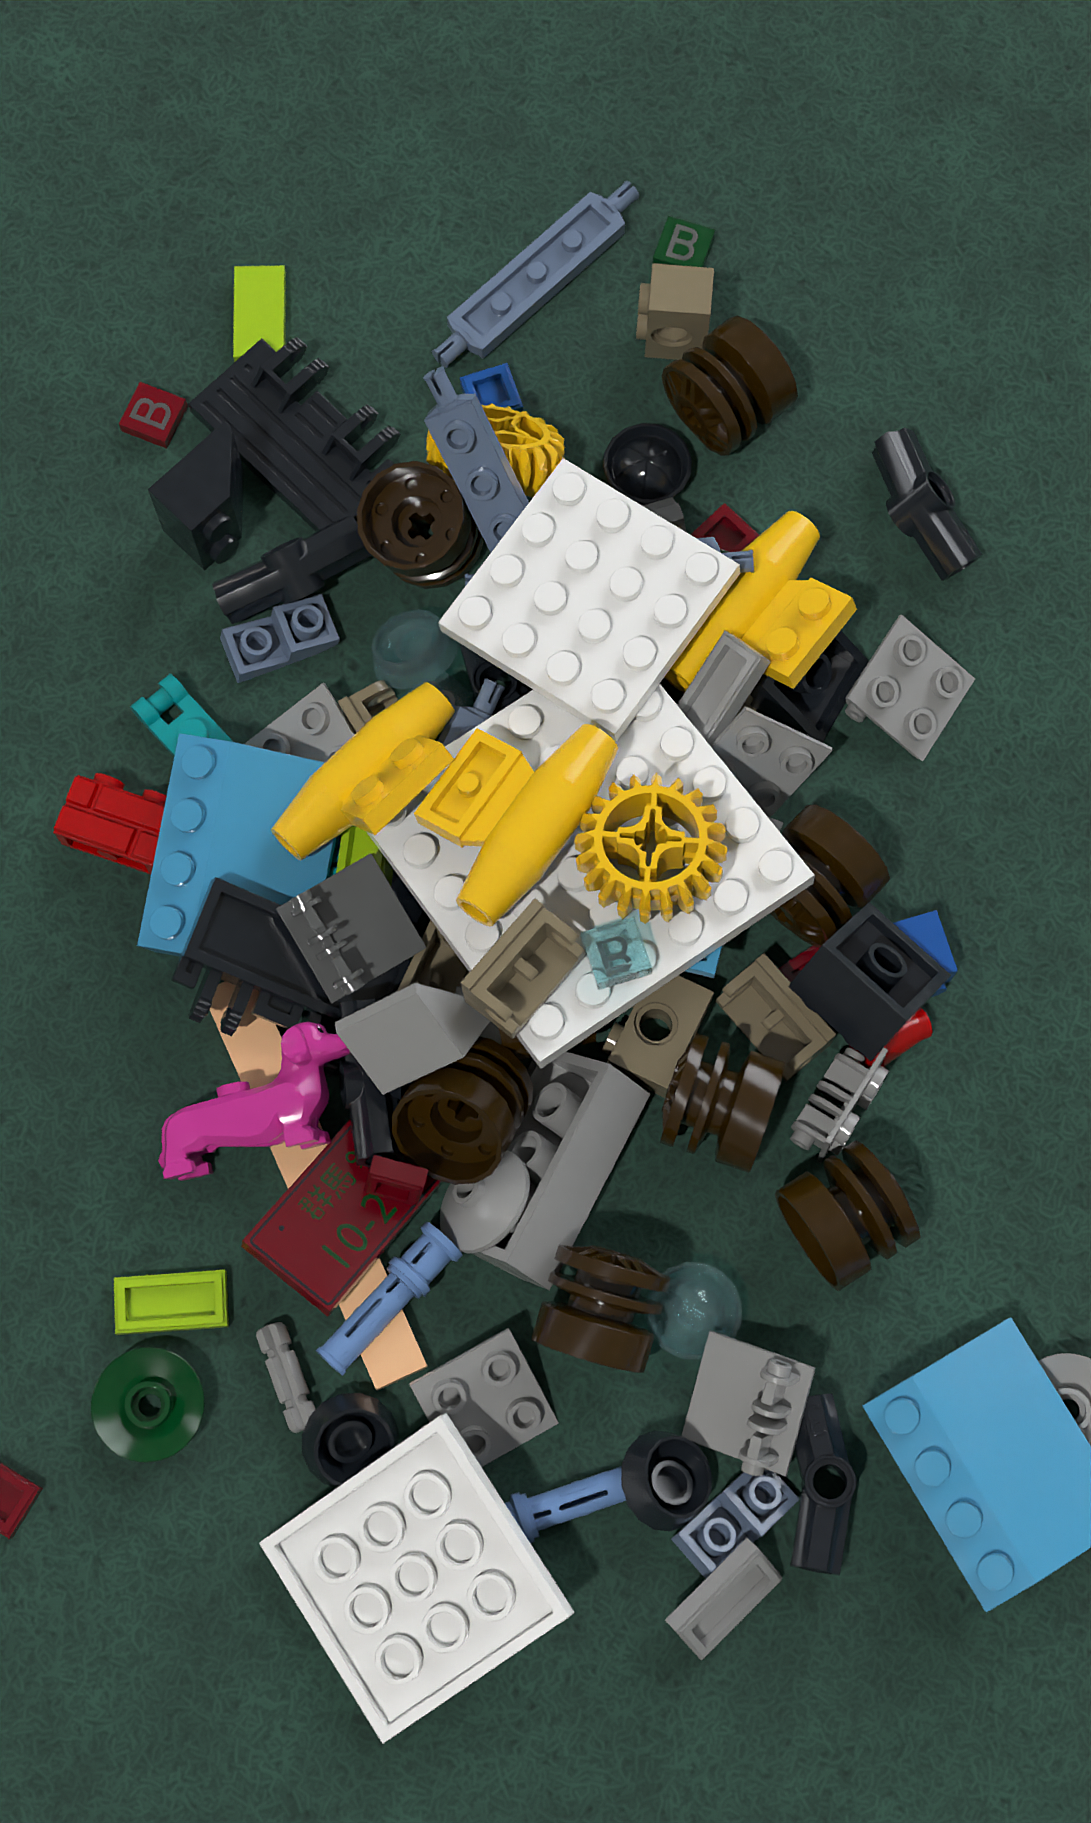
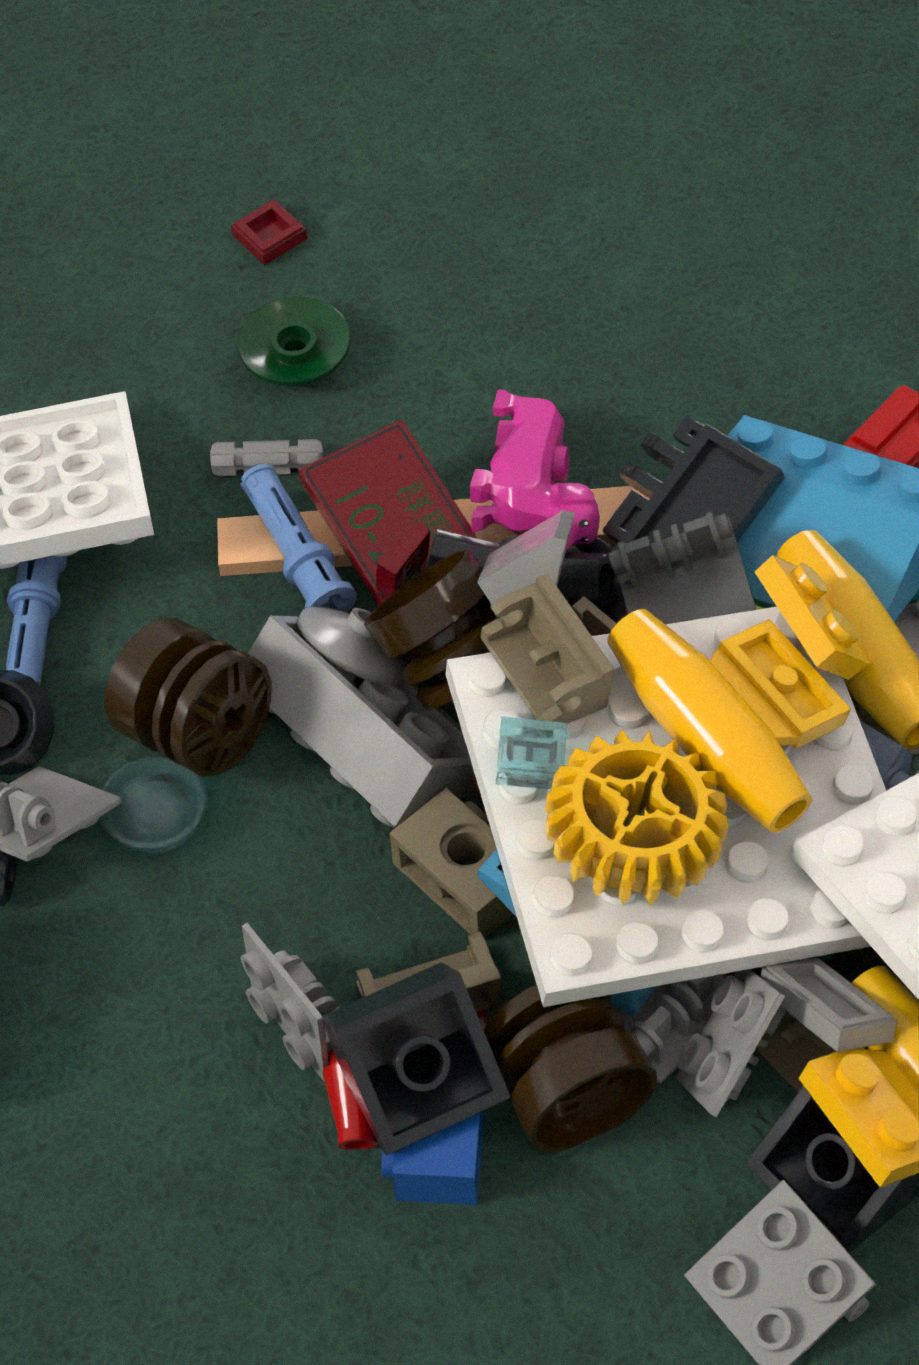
camera: 115 degrees right, 20 degrees down
(171, 1302) = (383, 387): lime tile -> none
(340, 1426) = (191, 473): black hat -> none
(487, 1397) = (156, 585): light grey hinge -> none
(722, 1102) = (350, 878): dark brown wheel -> none
(855, 1210) = (170, 956): dark brown wheel -> none

